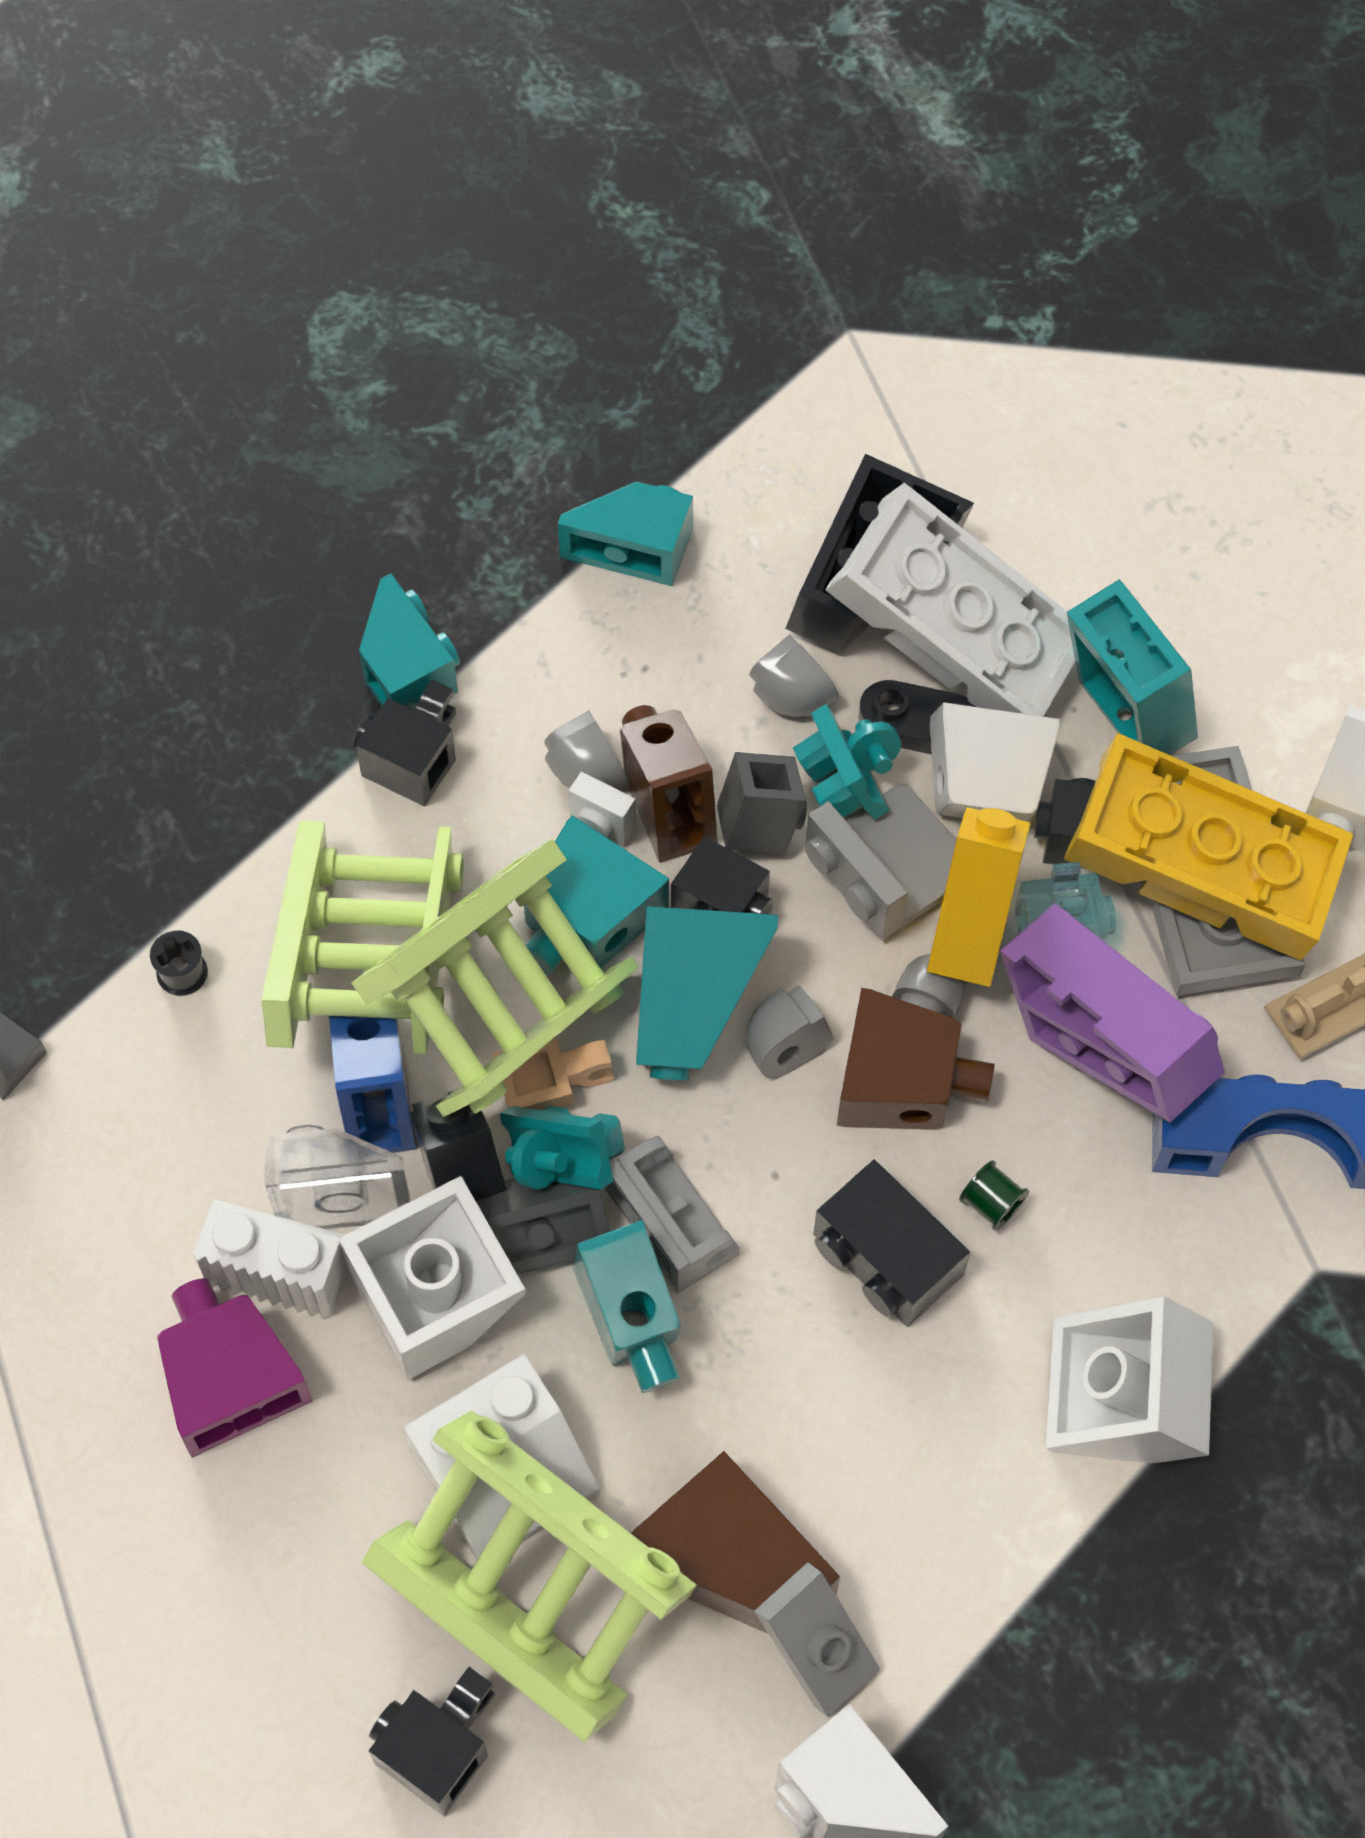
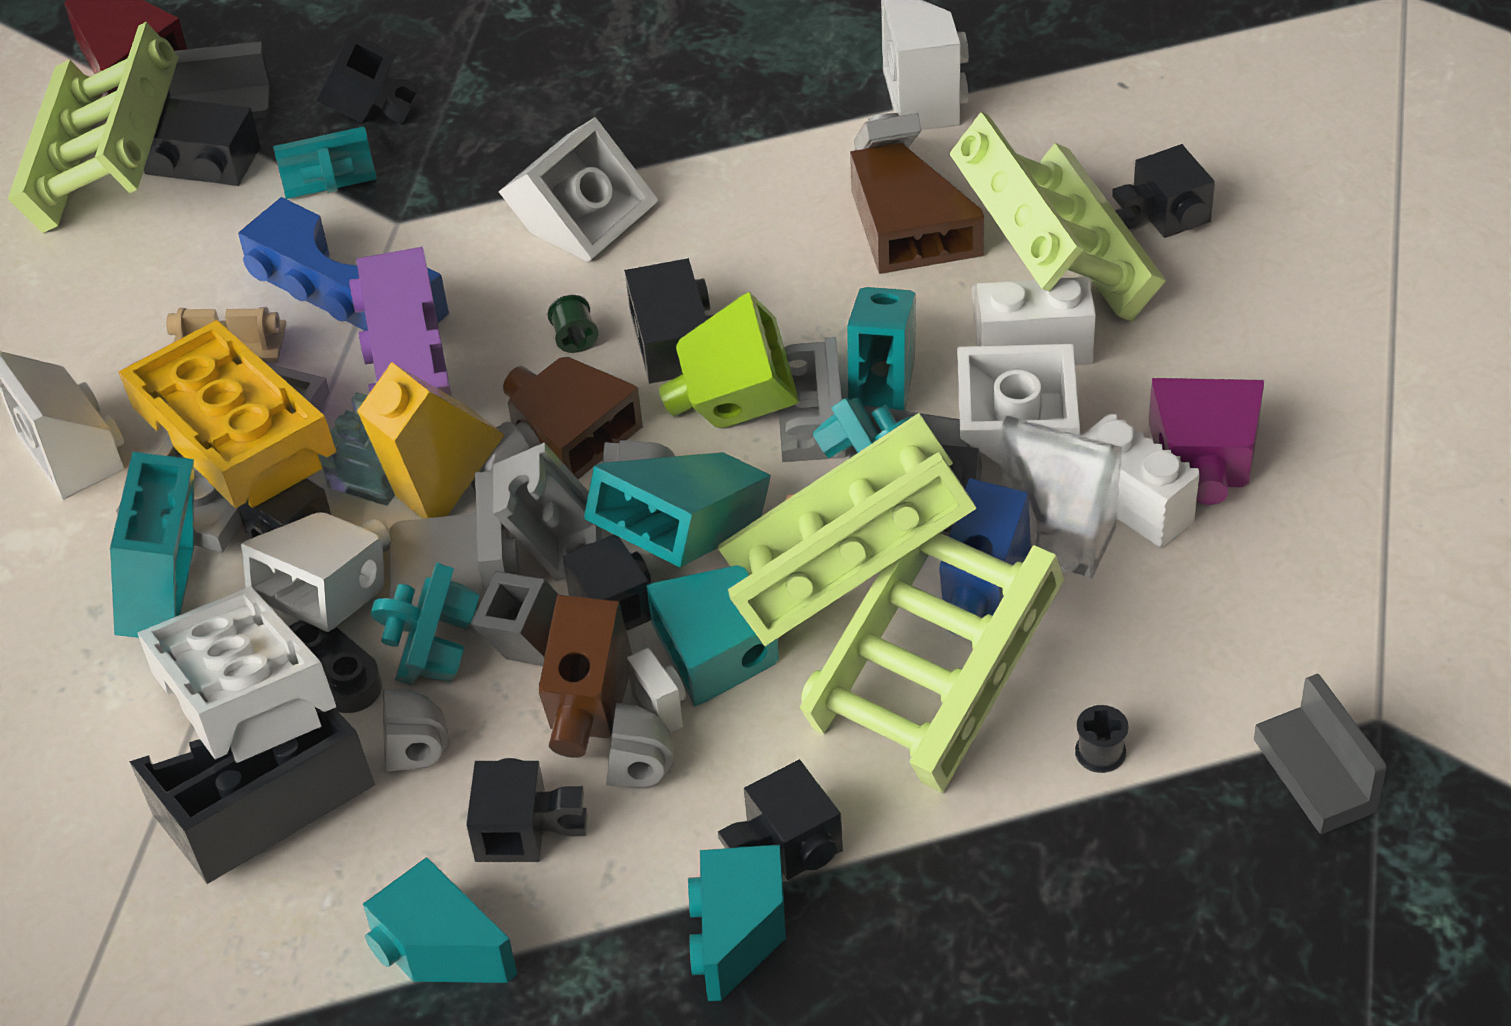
camera: 145 degrees left, 15 degrees down
(646, 648) = (513, 810): none -> black brick
(759, 1182) = (732, 367): none -> lime torso
(824, 905) = (542, 506): none -> light grey hinge

